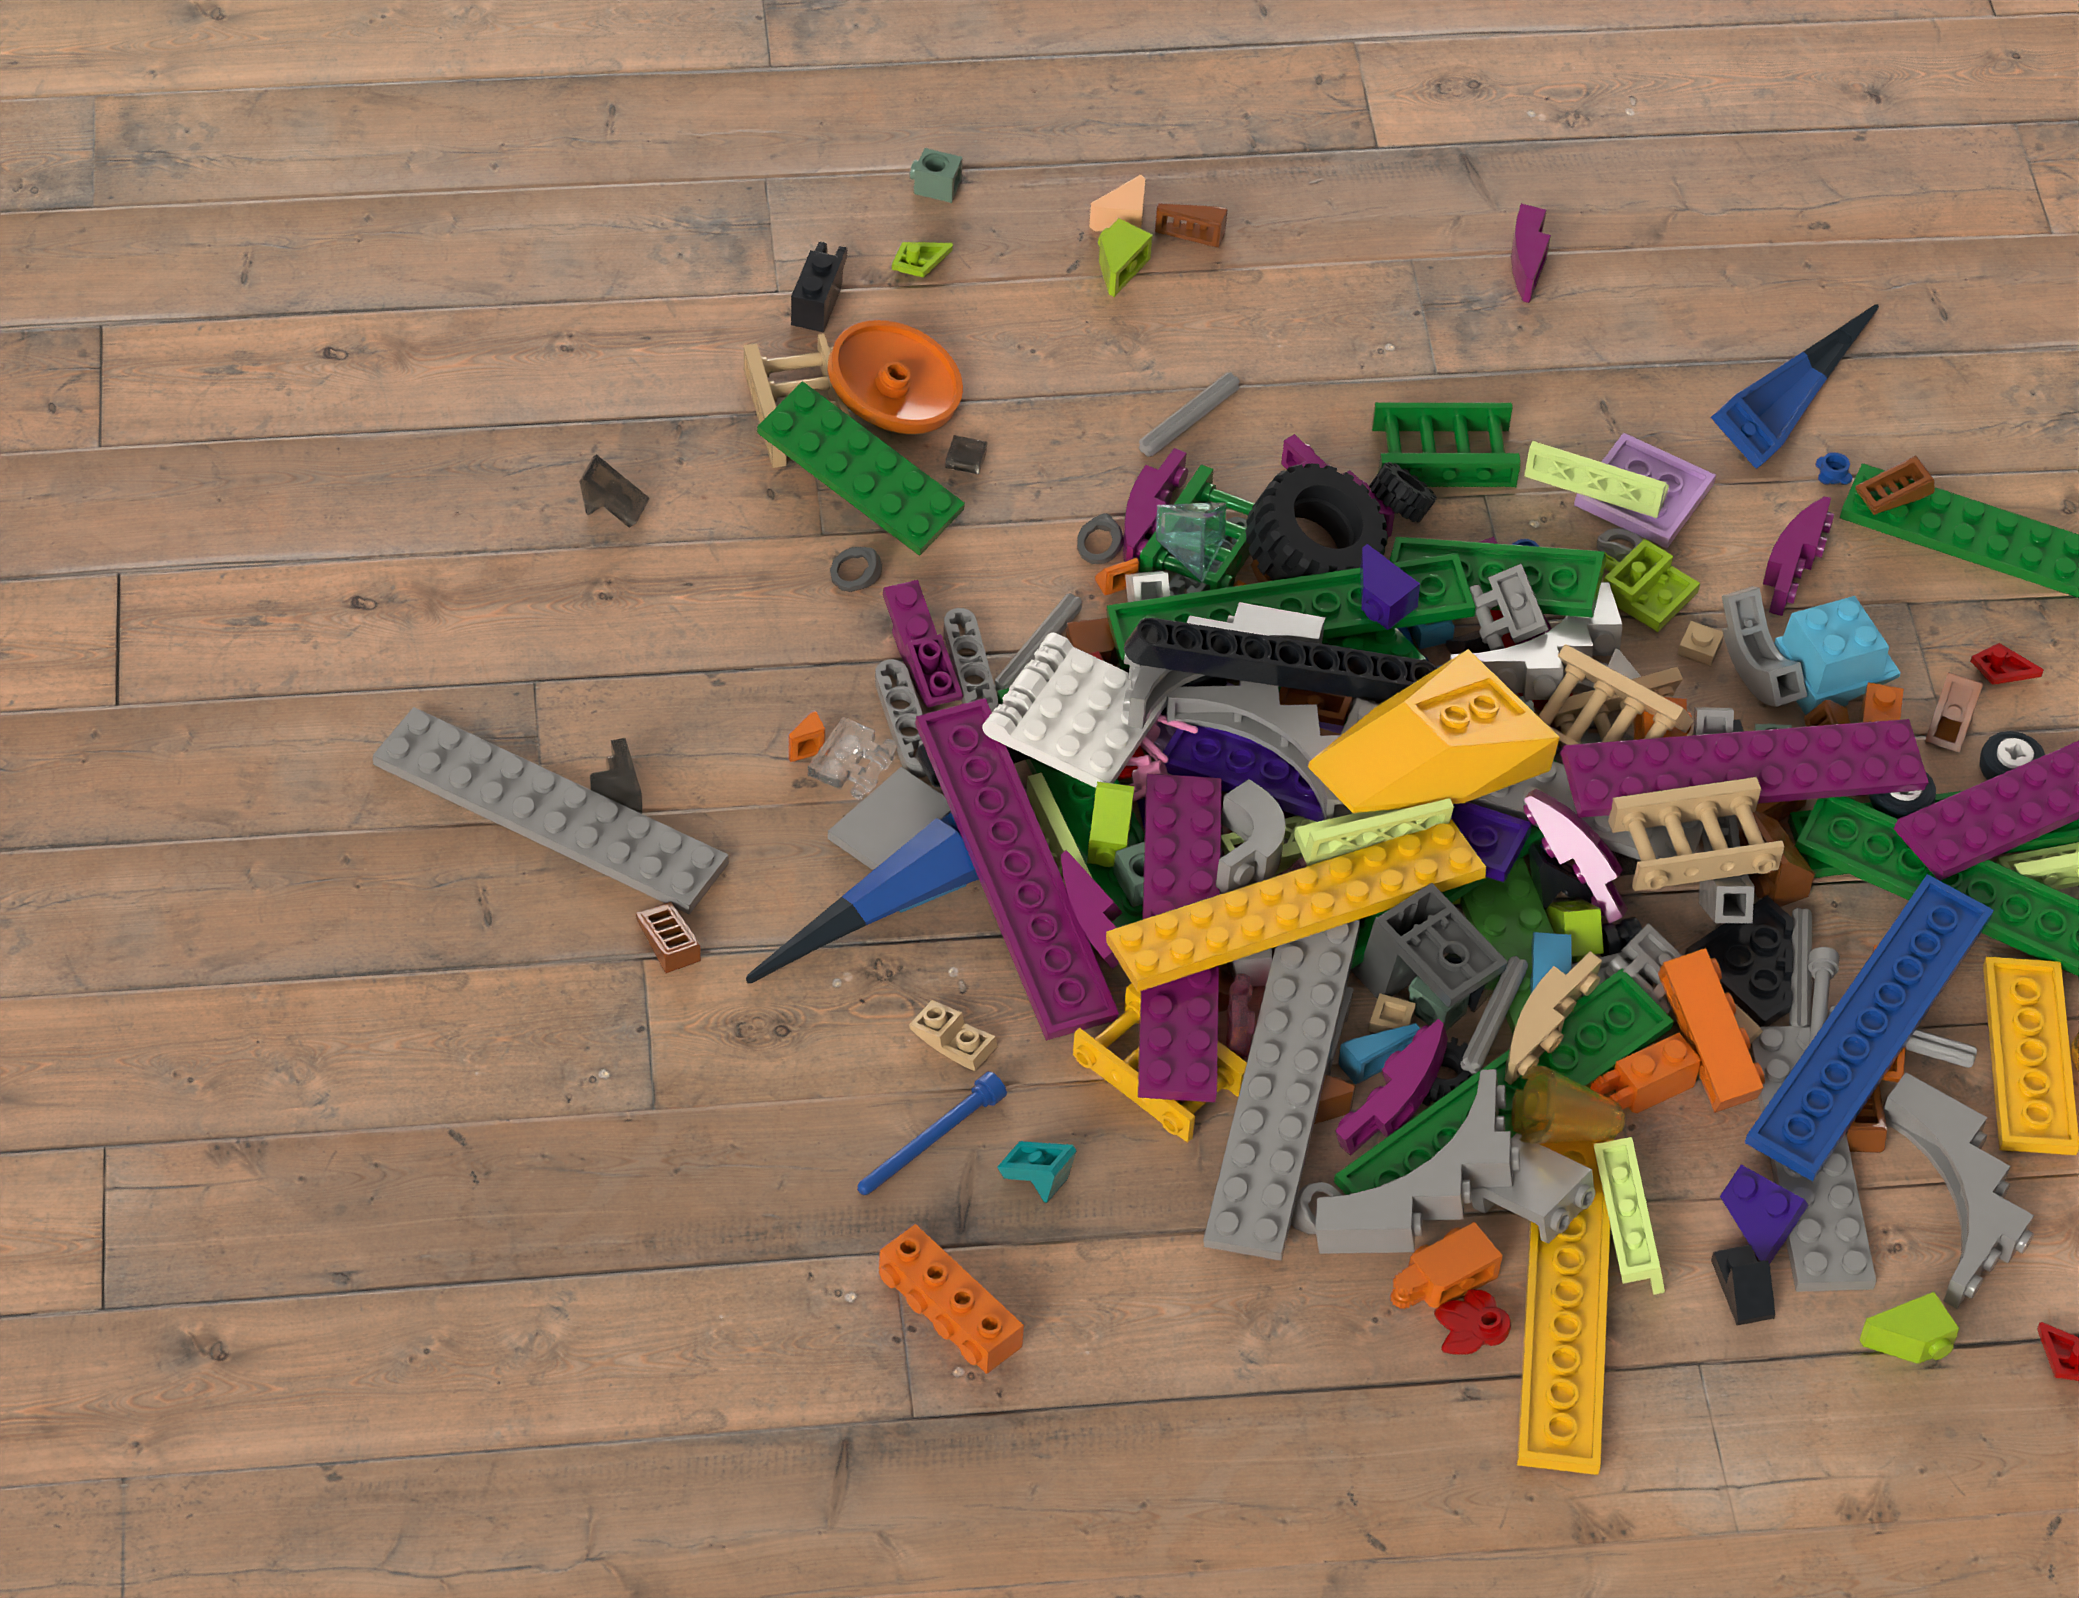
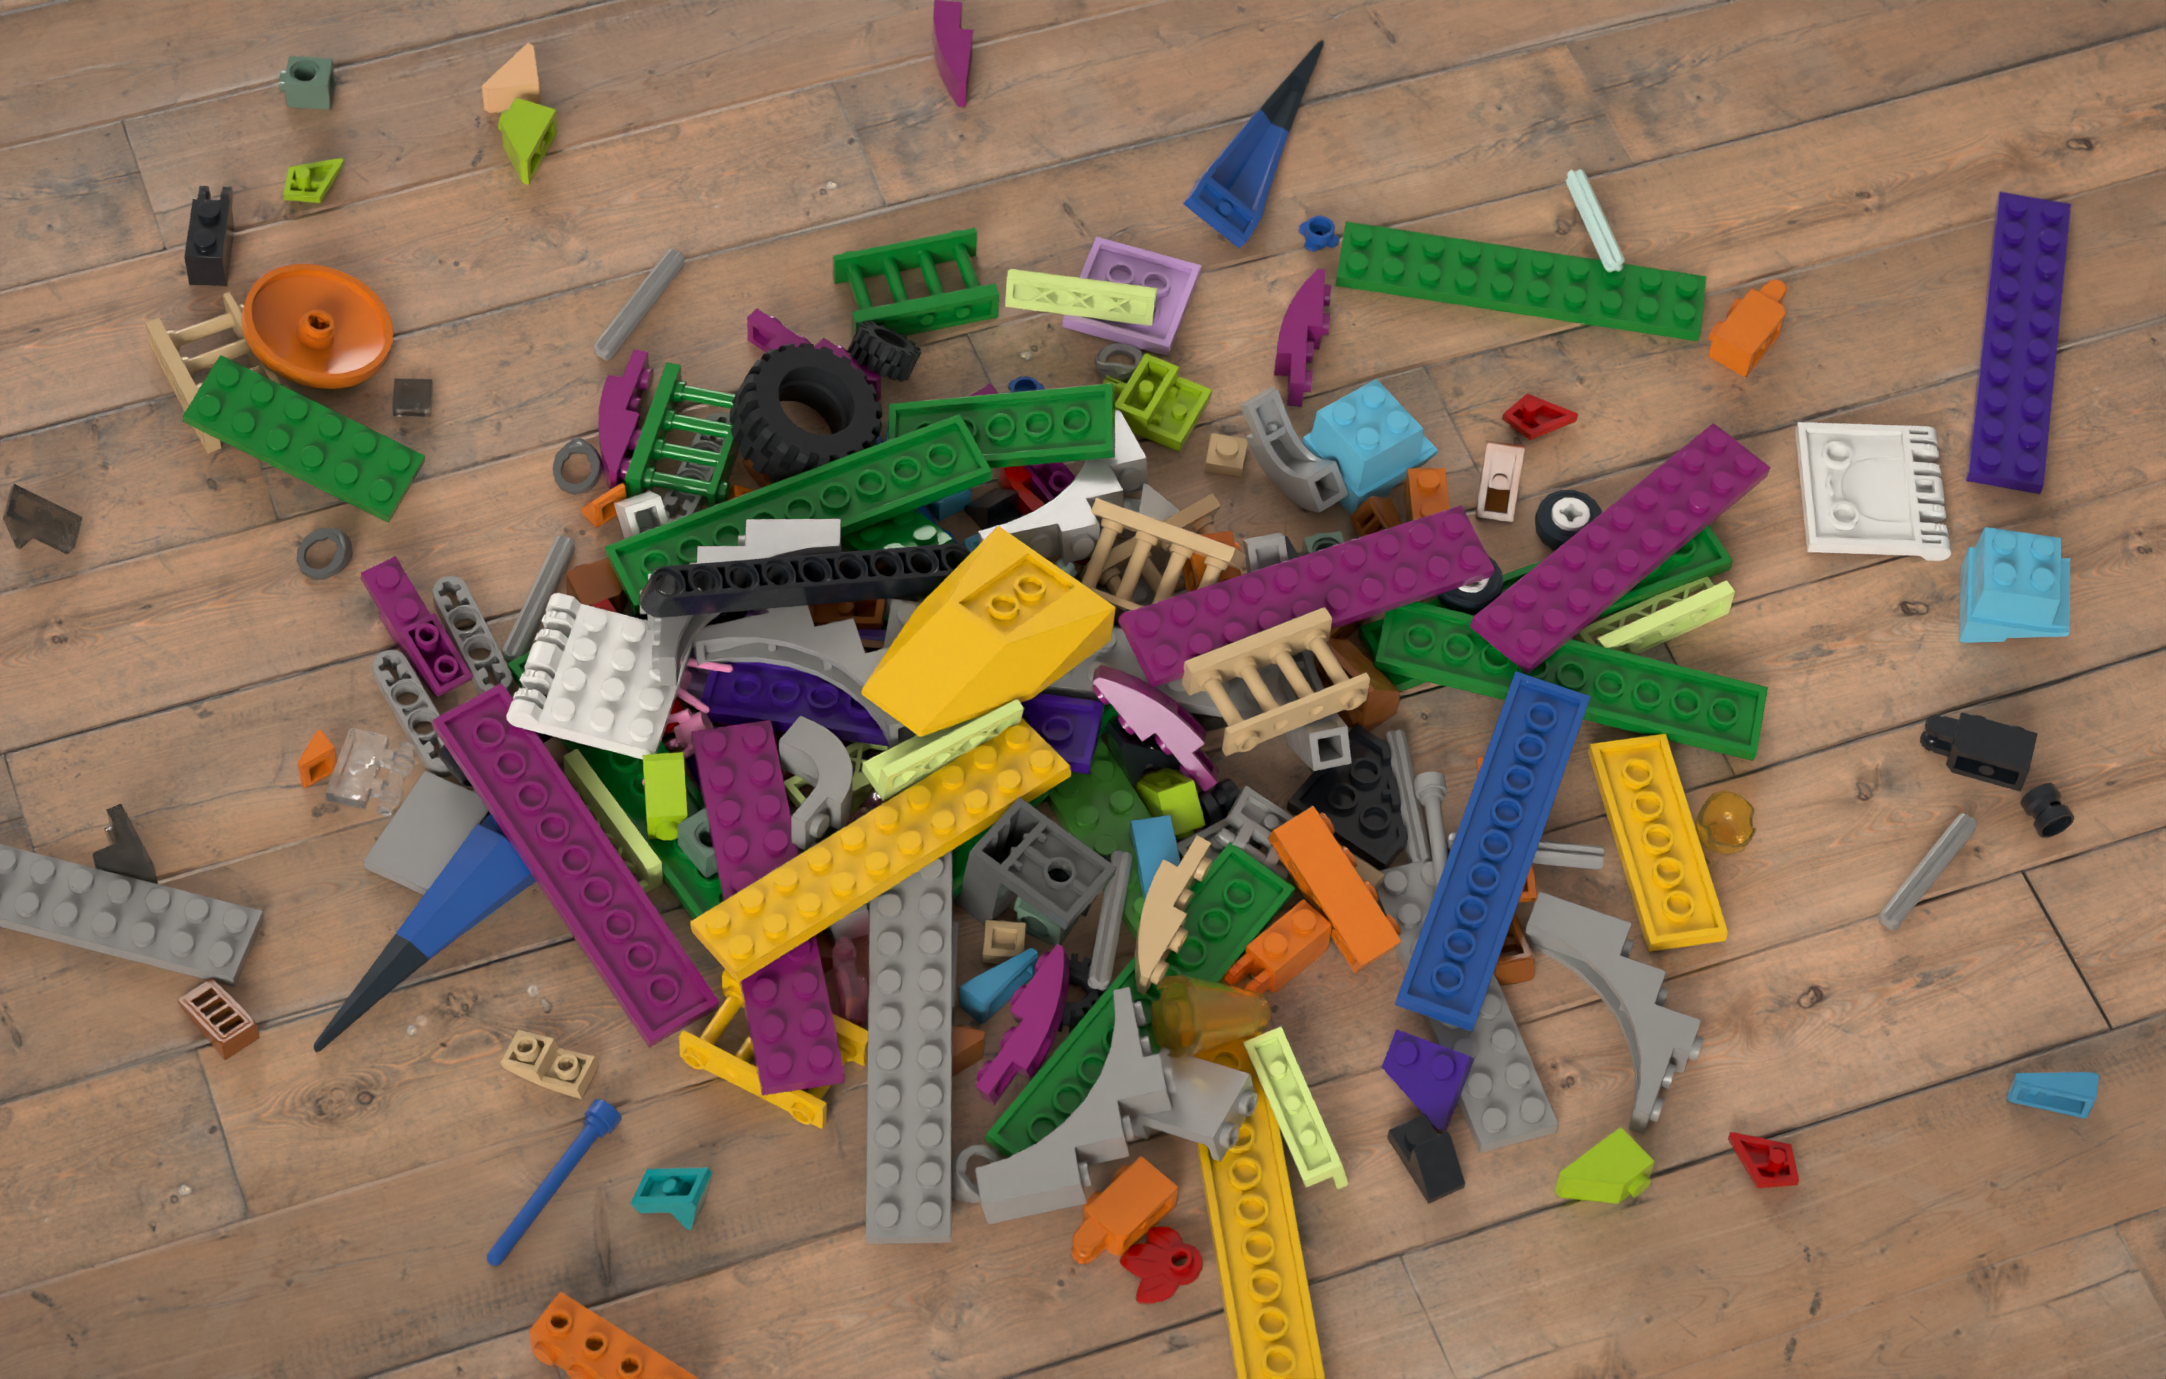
camera: 15 degrees left, 5 degrees up
(1091, 906) = (665, 892): magenta slope -> none
(1192, 533) = (675, 444): clear light blue slope -> none
(1208, 228) = (605, 85): dark orange slope -> none
(1385, 589) = (894, 472): dark purple slope -> none
(1518, 606) = (1035, 460): light grey plate -> none
(1900, 473) = (1397, 220): dark orange slope -> none

